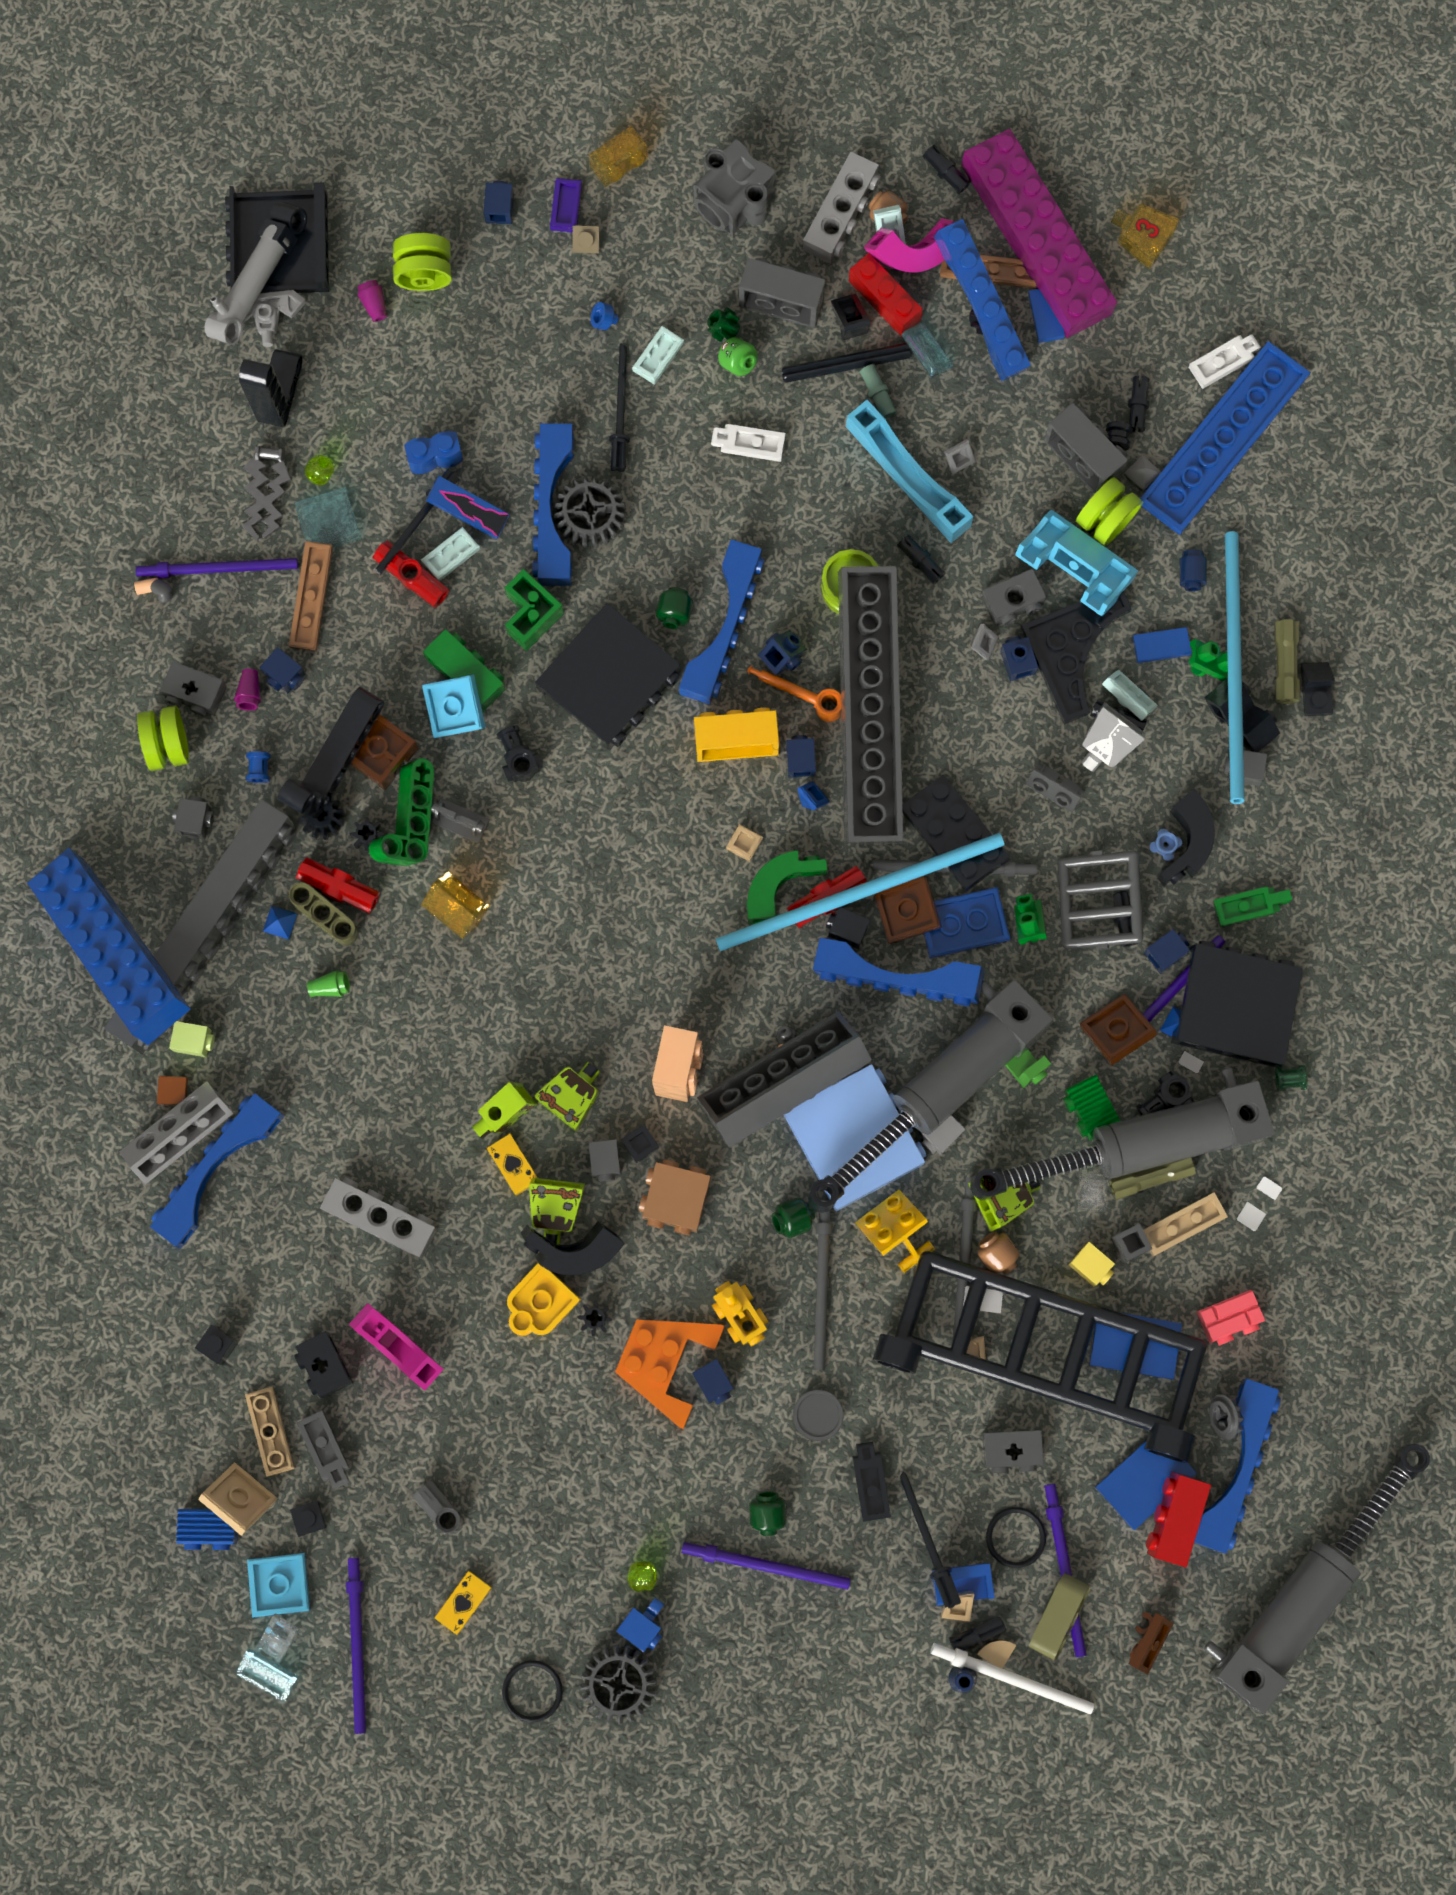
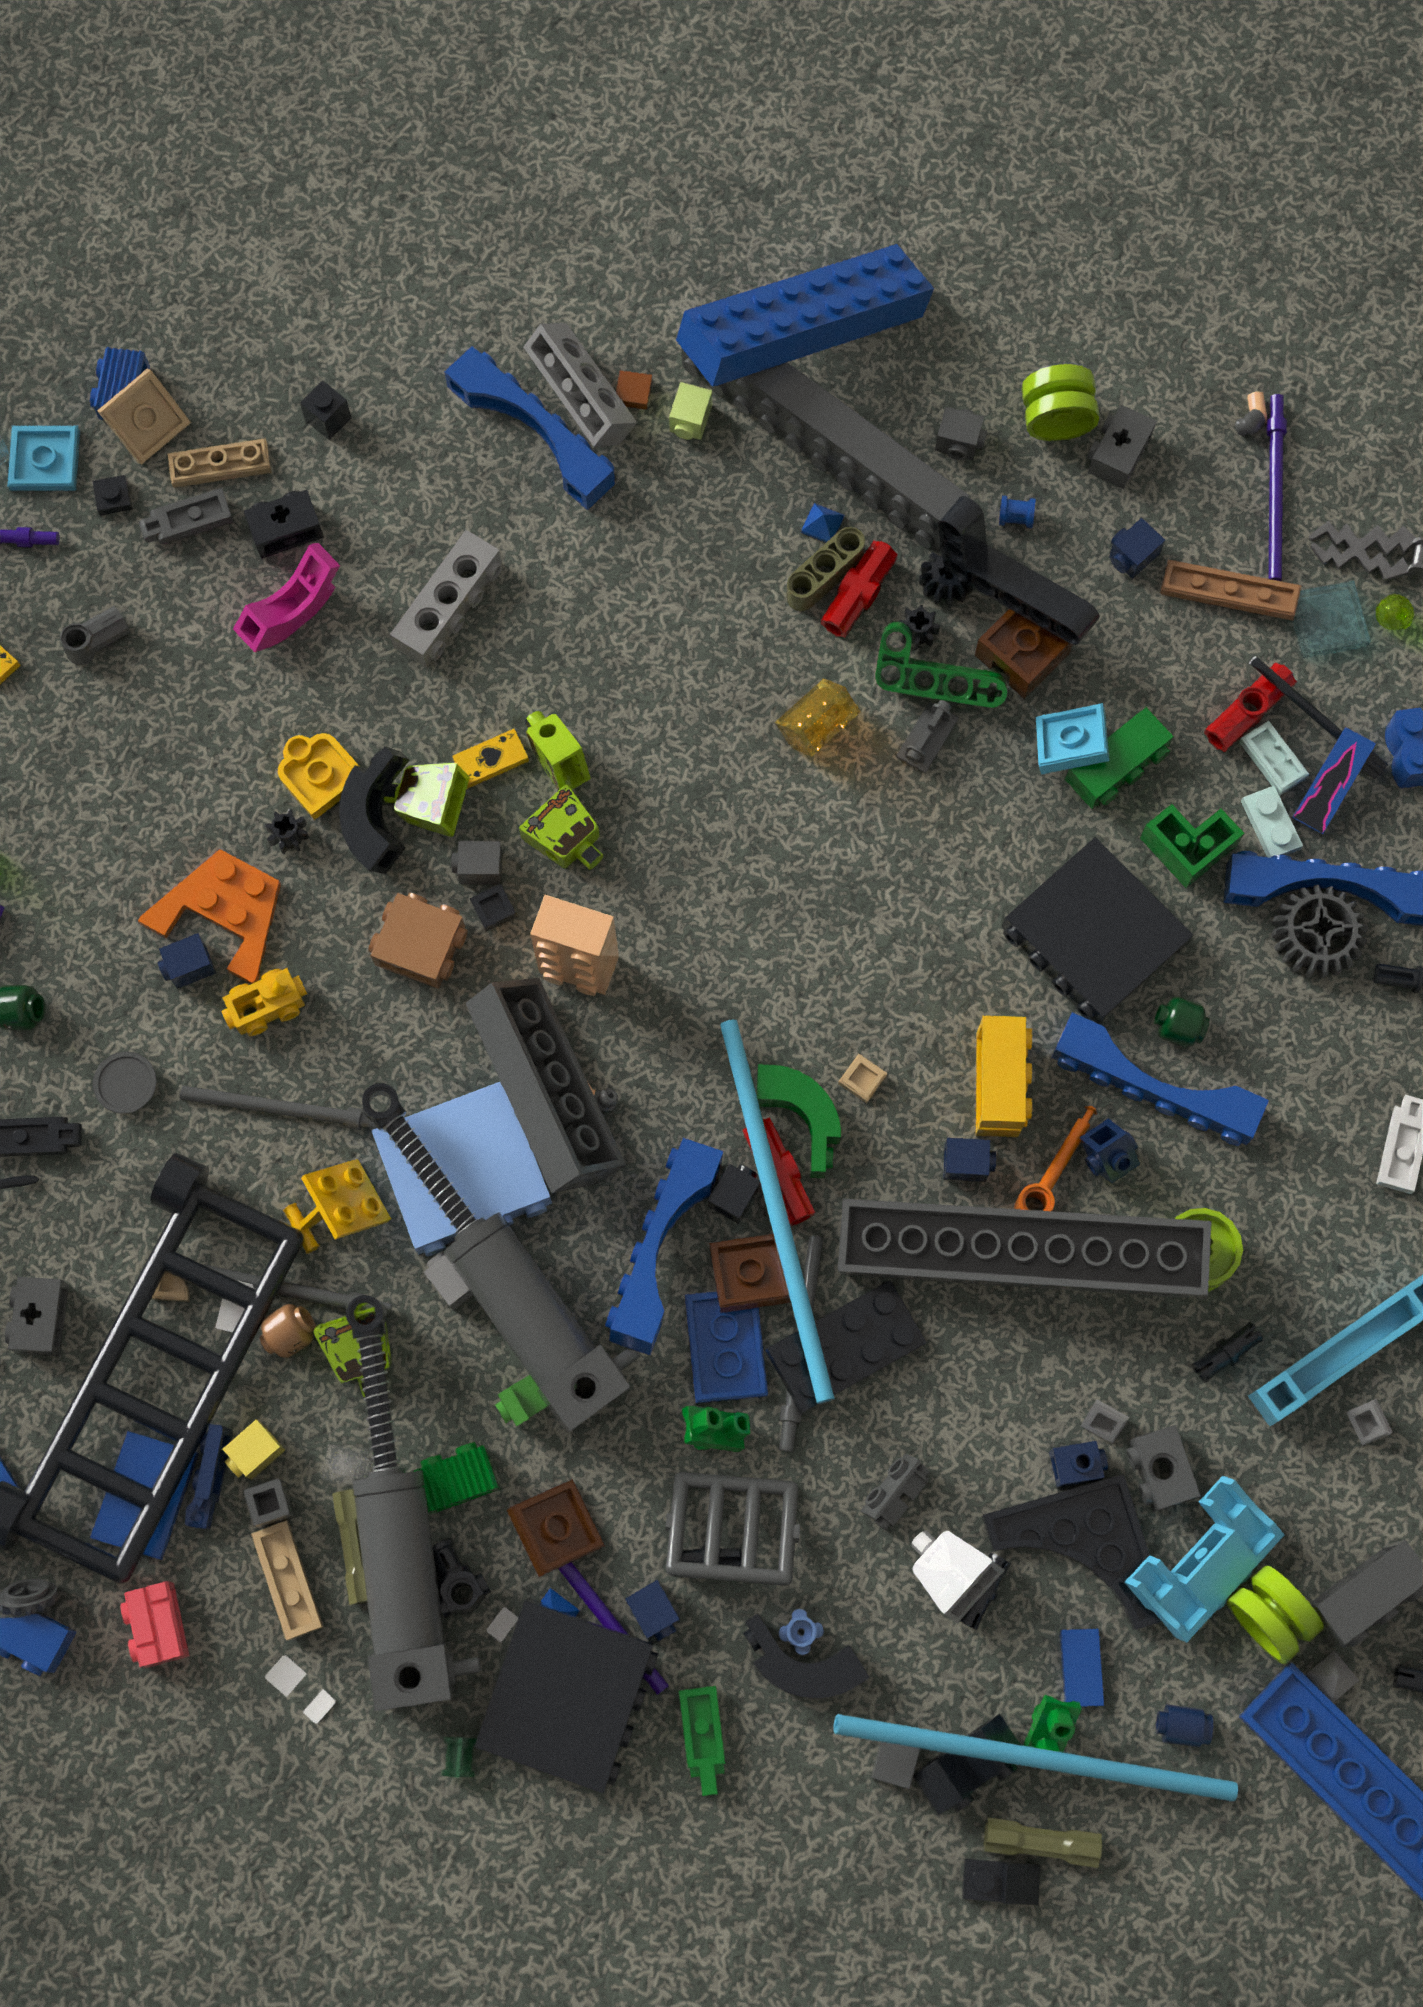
camera: 95 degrees right, 5 degrees down
(248, 690) = (1113, 508): magenta cone -> none
(331, 984) = (737, 570): bright green cone -> none
(503, 553) = (1271, 822): none -> light aqua plate
(517, 754) = (1005, 810): black connector -> none
(793, 1217) = (368, 1072): dark green head -> none
(811, 796) = (915, 1170): blue slope -> none
(1119, 433) = (1387, 1646): black wheel -> none
(1119, 1296) = (209, 1478): none -> dark blue hinge
(1129, 695) = (1013, 1610): light aqua plate -> none

